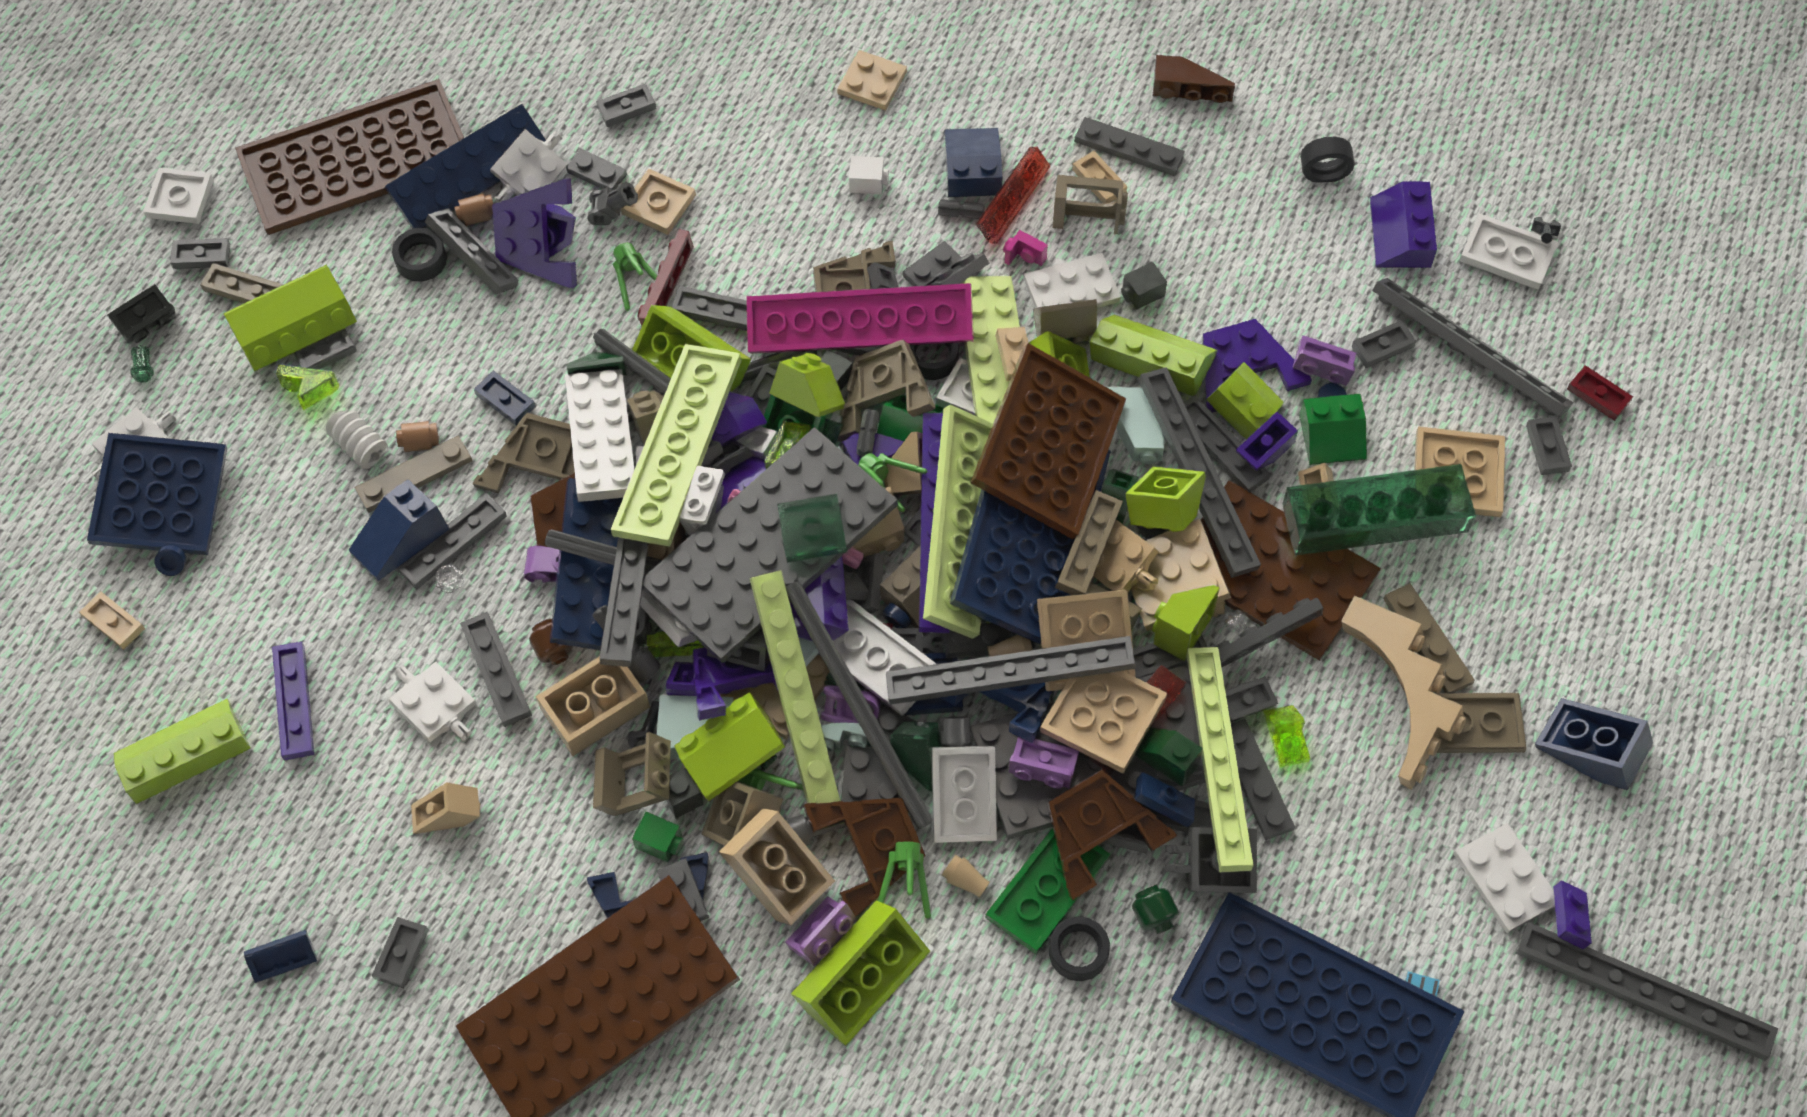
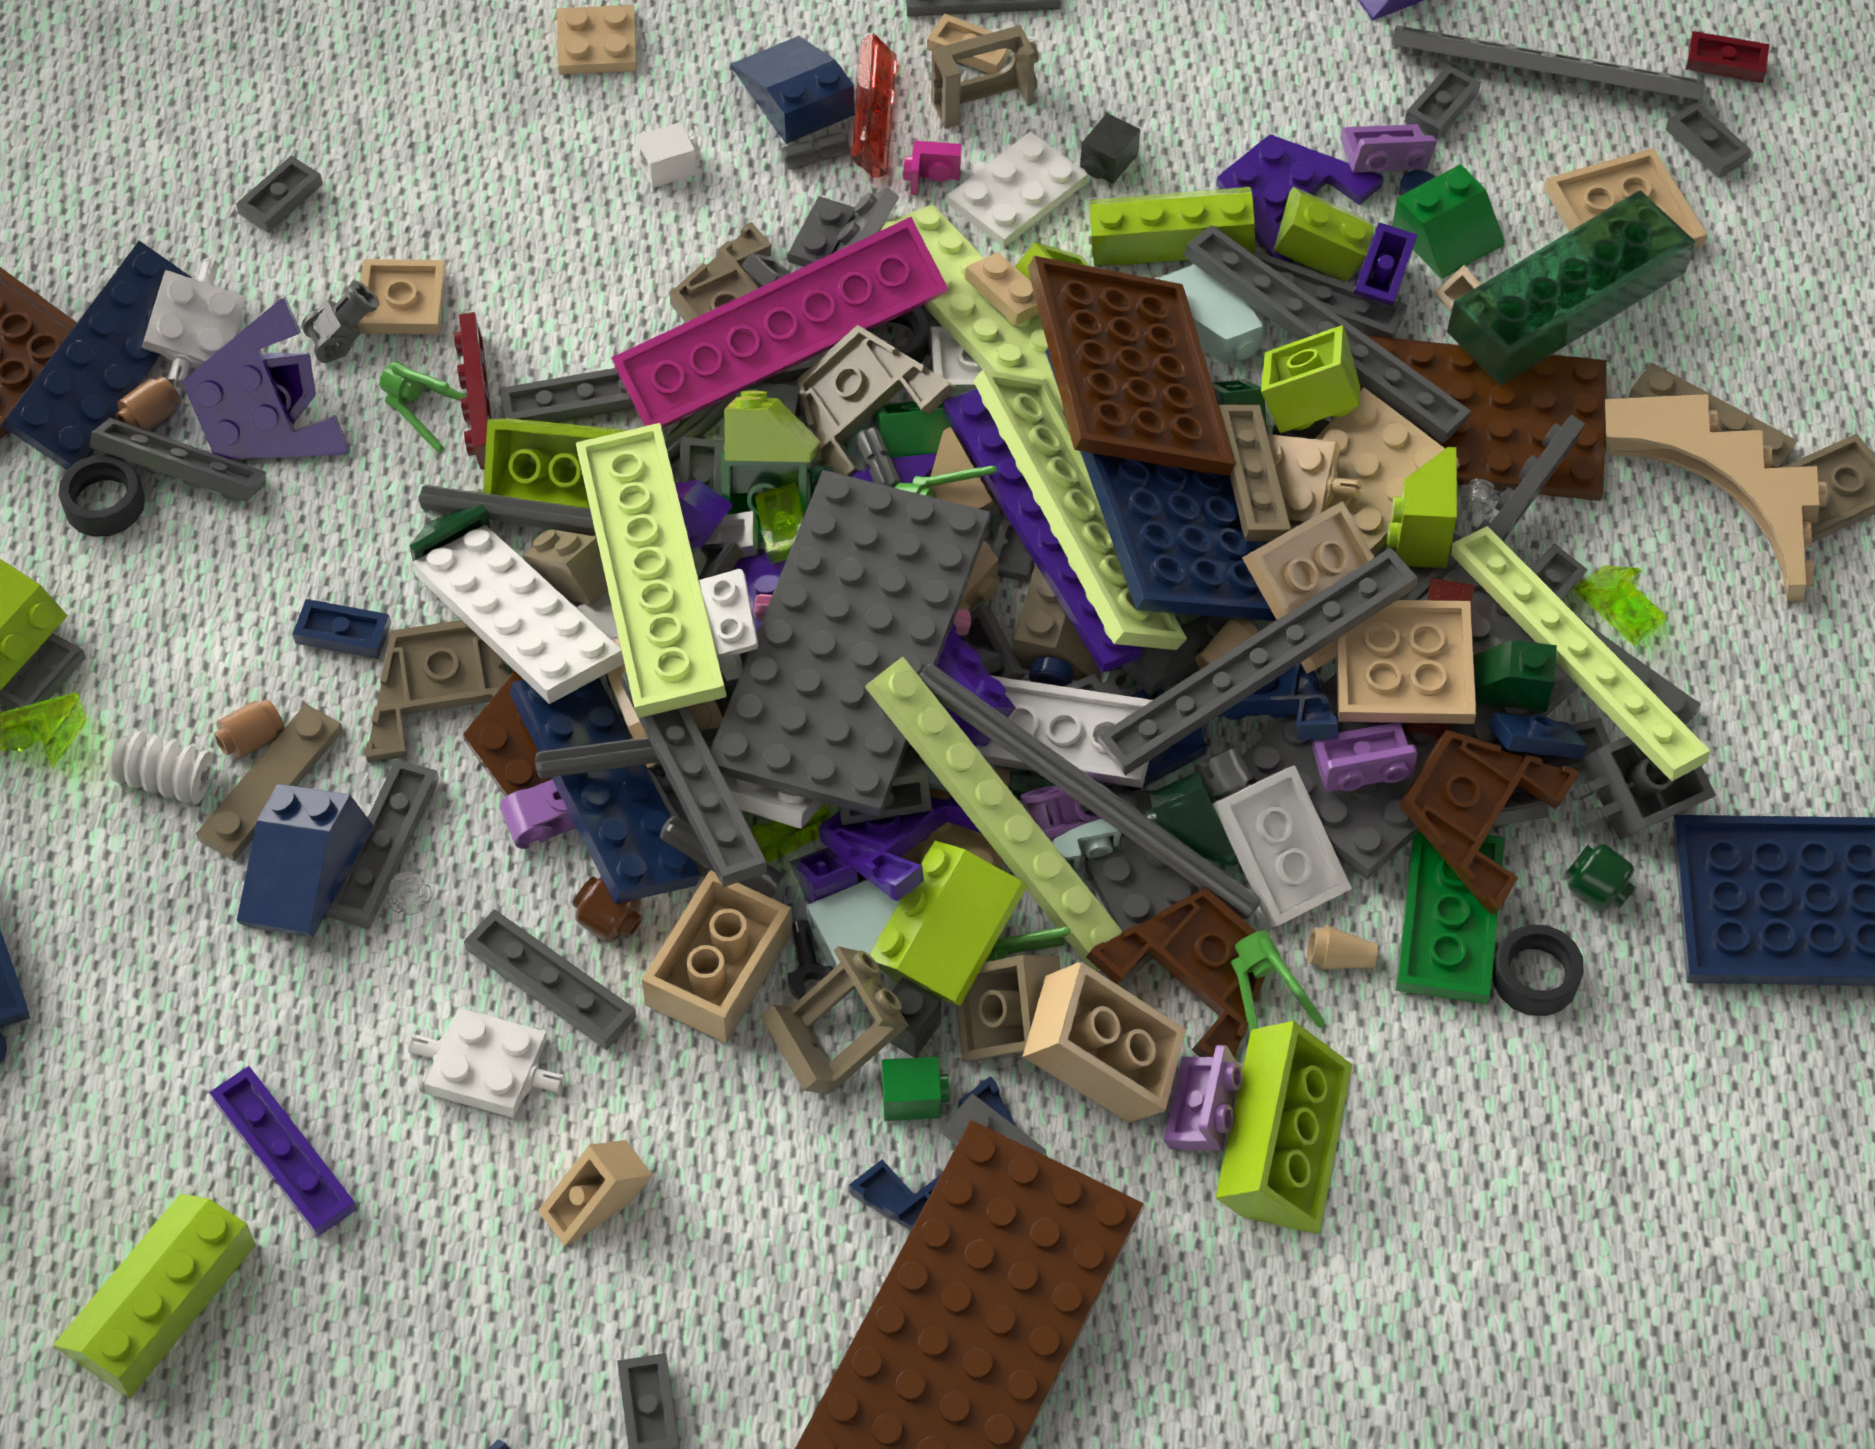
camera: 30 degrees left, 5 degrees down
(596, 170) = (303, 291): plate -> none
(812, 528) = (907, 589): clear green plate -> none
(1067, 320) = (1048, 220): dark tan slope -> none

